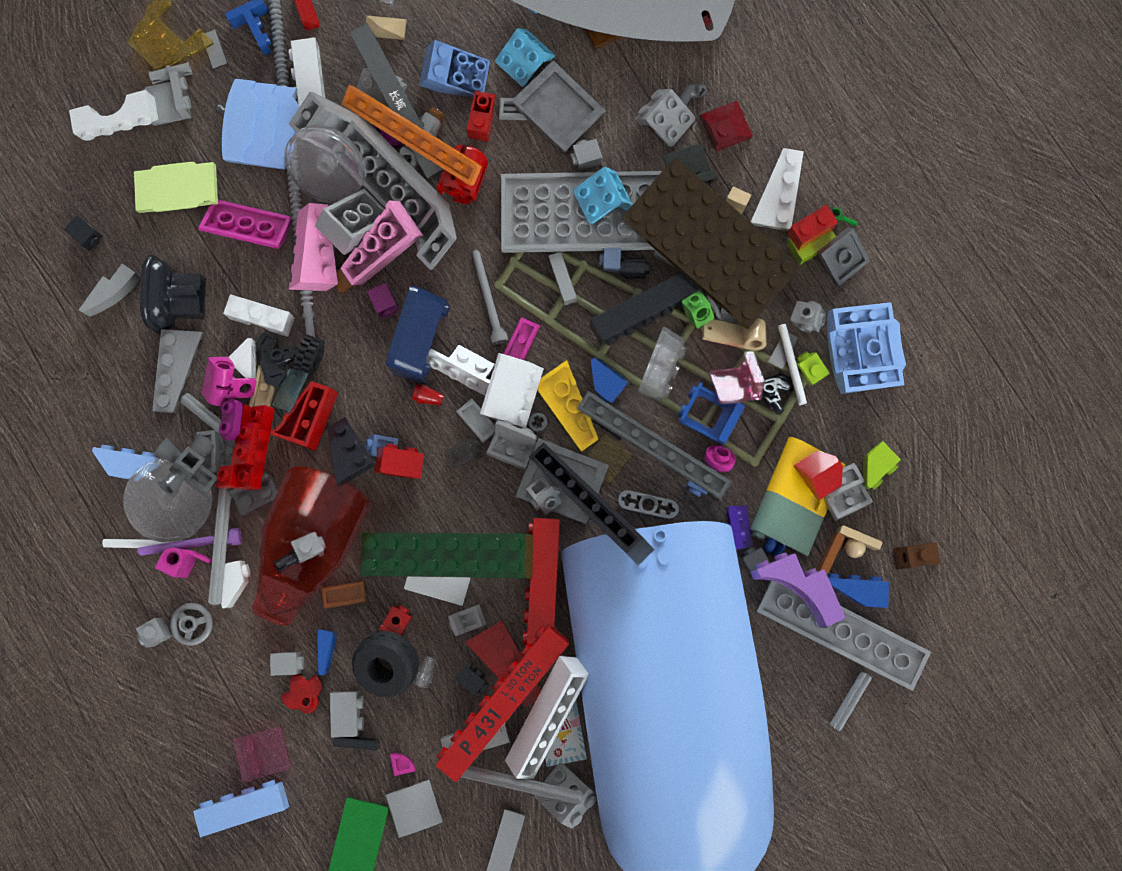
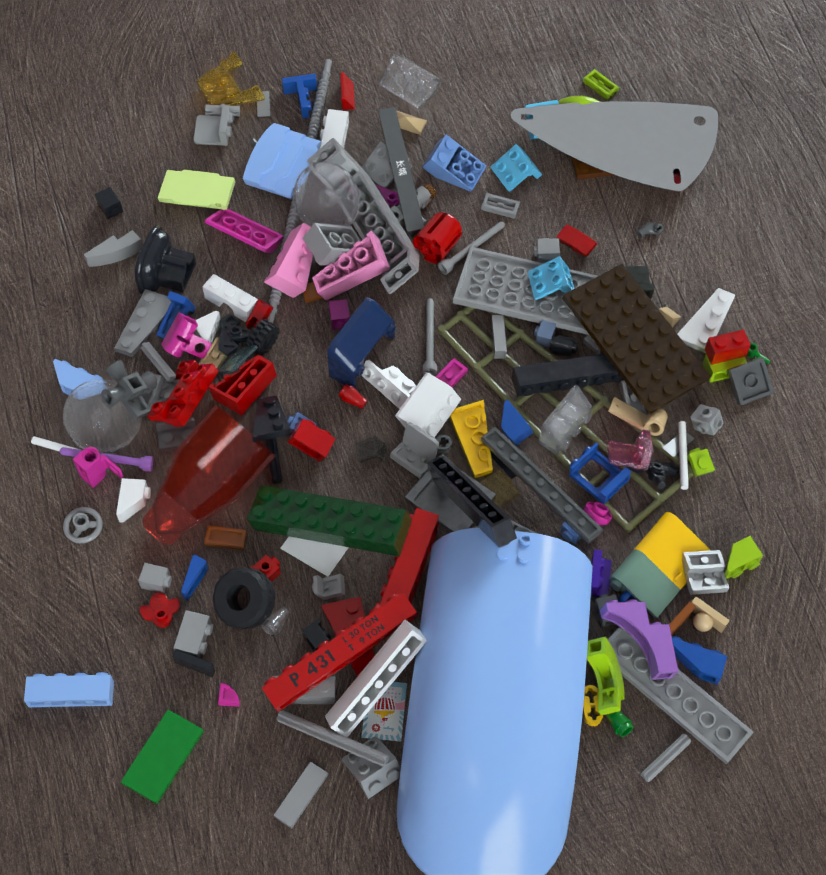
camera: 10 degrees right, 20 degrees down
(137, 110) = (186, 127): white arch -> none
(153, 632) = (48, 520): light grey brick -> none
(205, 346) = (178, 304): none -> blue bracket
(220, 546) = (133, 463): light grey axle -> none
(231, 419) = (179, 366): magenta plate -> none
(262, 753) = (105, 649): clear pink bracket -> none
(286, 561) = (194, 490): black pin -> none
(297, 325) = (260, 312): none -> red piece
(308, 547) = (209, 484): light grey bracket -> none
(363, 485) = (275, 464): none -> black axle
(411, 135) = (405, 194): orange plate -> none
(413, 808) = (226, 737): light grey slope -> none
(478, 423) = (389, 429): light grey tile -> none
(481, 116) = (466, 201): red slope -> none
(482, 204) = (447, 265): none -> light grey piece
(544, 495) = (431, 497): light grey brick -> none
(558, 106) = (533, 210): flat silver piece -> none
(615, 132) = (576, 240): none -> red slope
(666, 116) = (624, 240): light grey bracket -> none
(697, 309) = (611, 392): bright green brick -> none
(726, 126) = (673, 261): dark red slope -> none
(770, 666) = (587, 706): none -> yellow beam
(777, 639) = (608, 675): none -> lime arch
(797, 679) = (620, 723): none -> green cone
(820, 473) = (686, 546): red slope -> none
(865, 347) = (752, 457): light blue slope -> none
(917, 555) = (762, 642): reddish brown torso -> none

